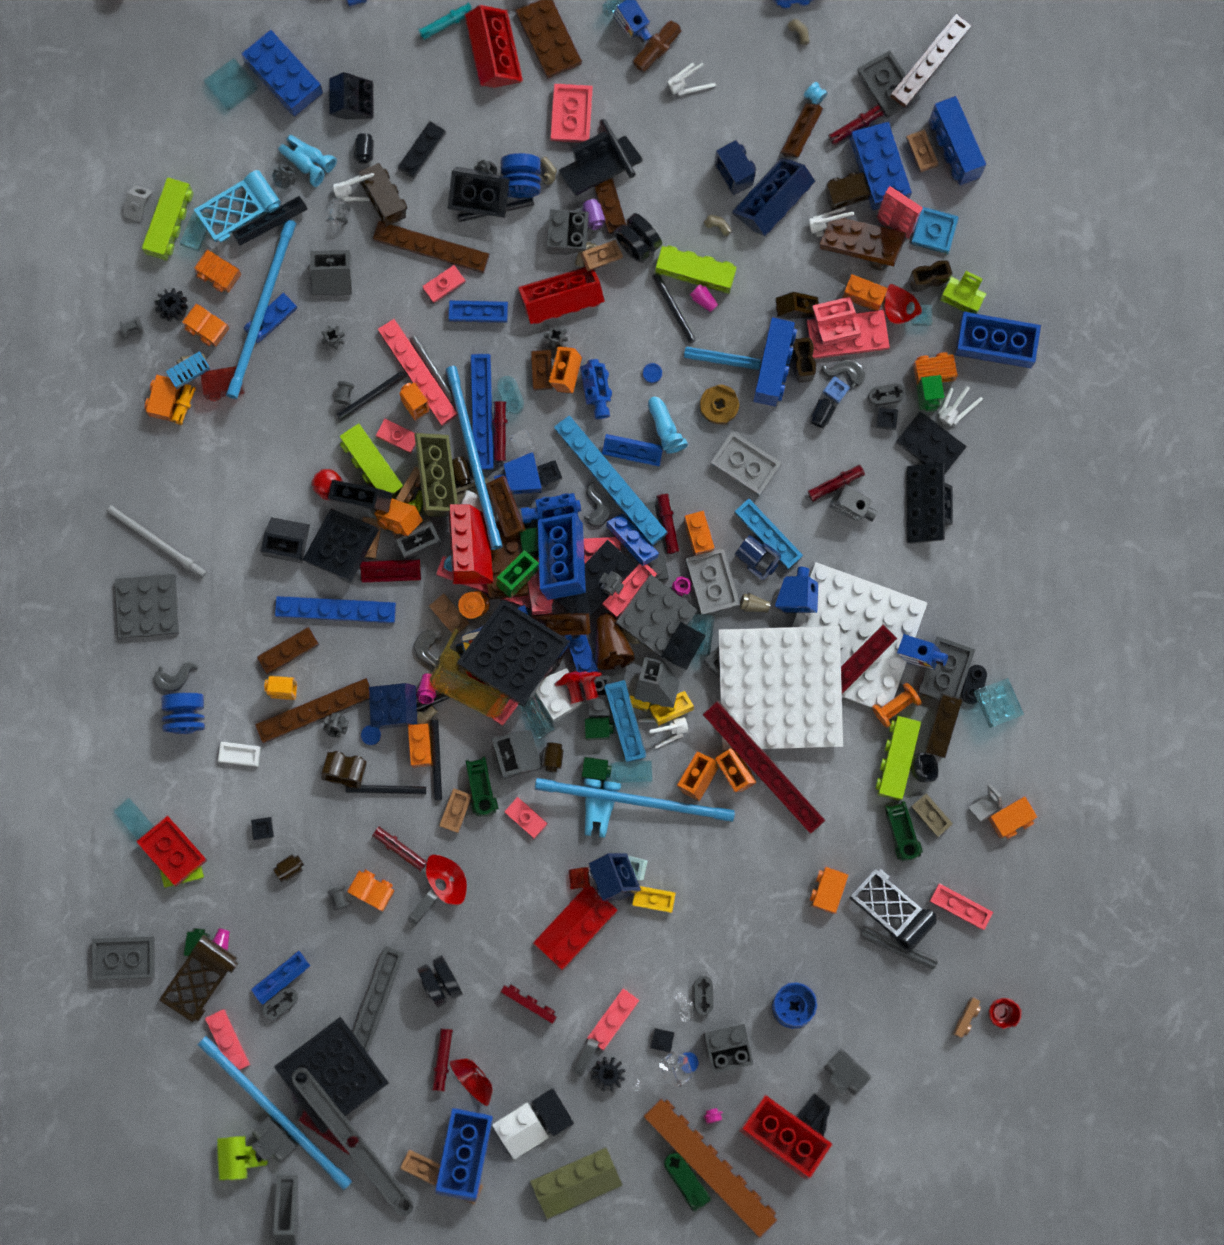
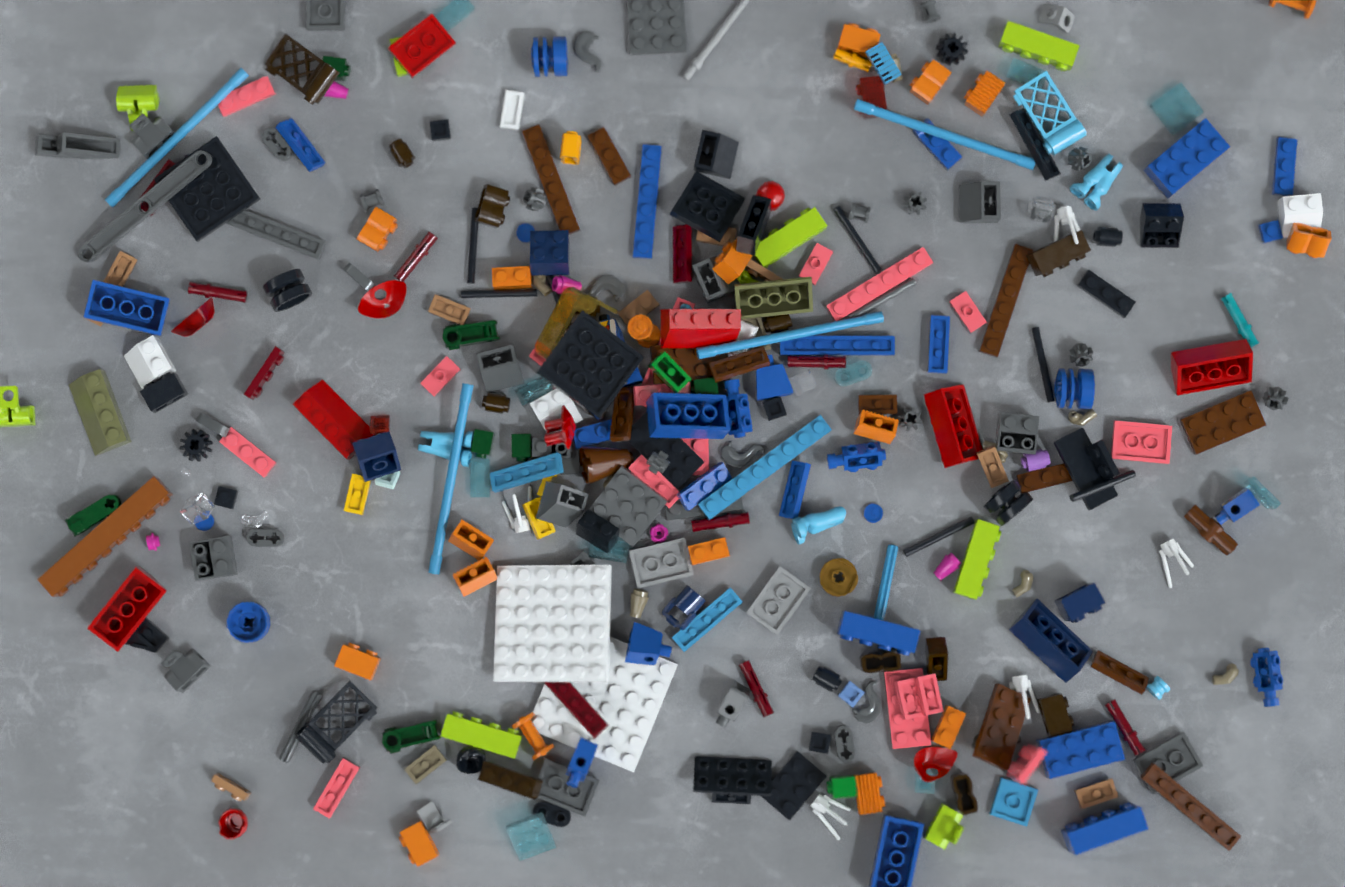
camera: 95 degrees right, 5 degrees up
(414, 400) = (848, 279): orange brick -> none
(478, 192) = (1057, 345): black slope -> none
(764, 767) = (477, 603): dark red plate -> none

